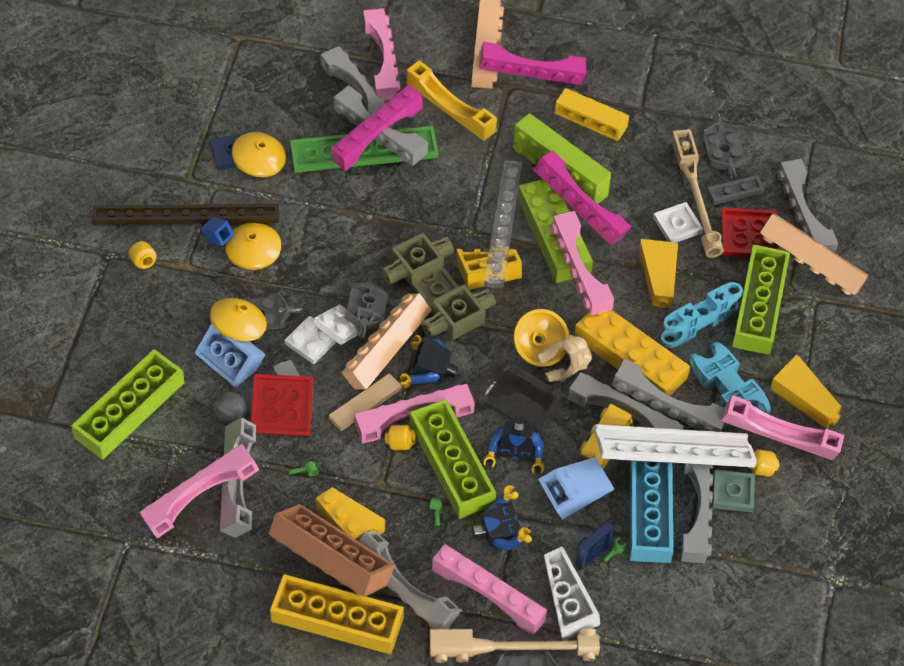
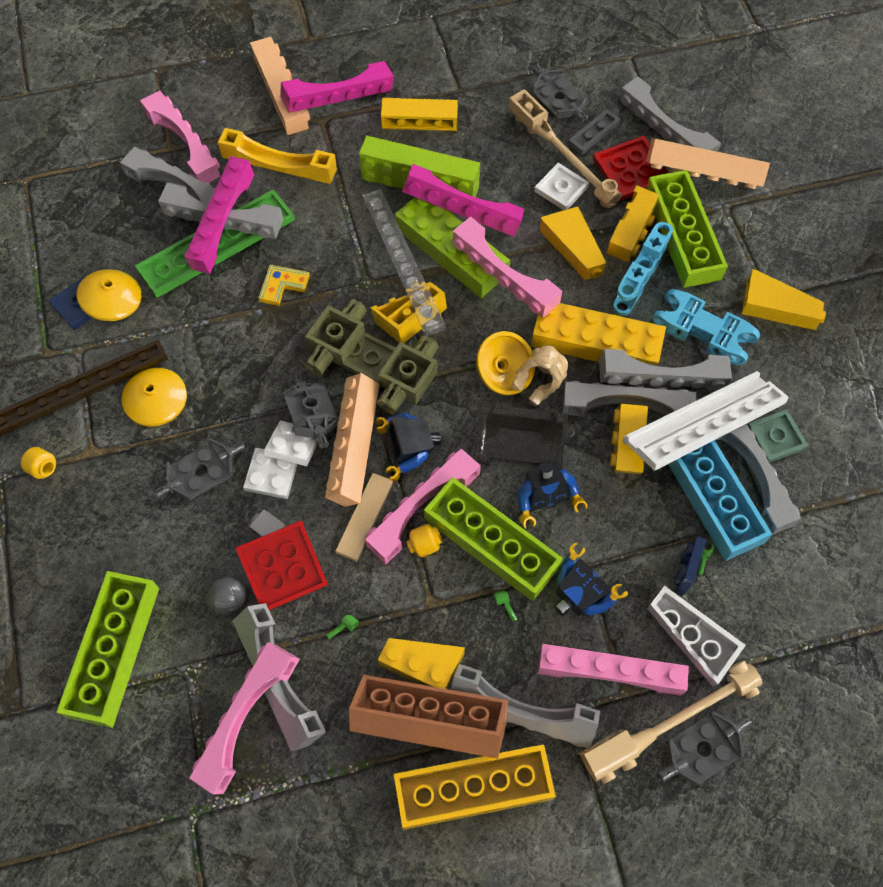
camera: 25 degrees left, 10 degrees up
(217, 231) = (108, 399): blue brick -> none
(229, 357) = (191, 531): light blue slope -> none
(238, 319) = (183, 491): yellow dish -> none
(398, 199) = (278, 280): none -> yellow tile
(575, 486) = (633, 508): light blue slope -> none
(725, 270) = (633, 225): none -> yellow wedge
(766, 463) = (793, 390): yellow head -> none
(816, 441) = (754, 354): bright pink arch -> none

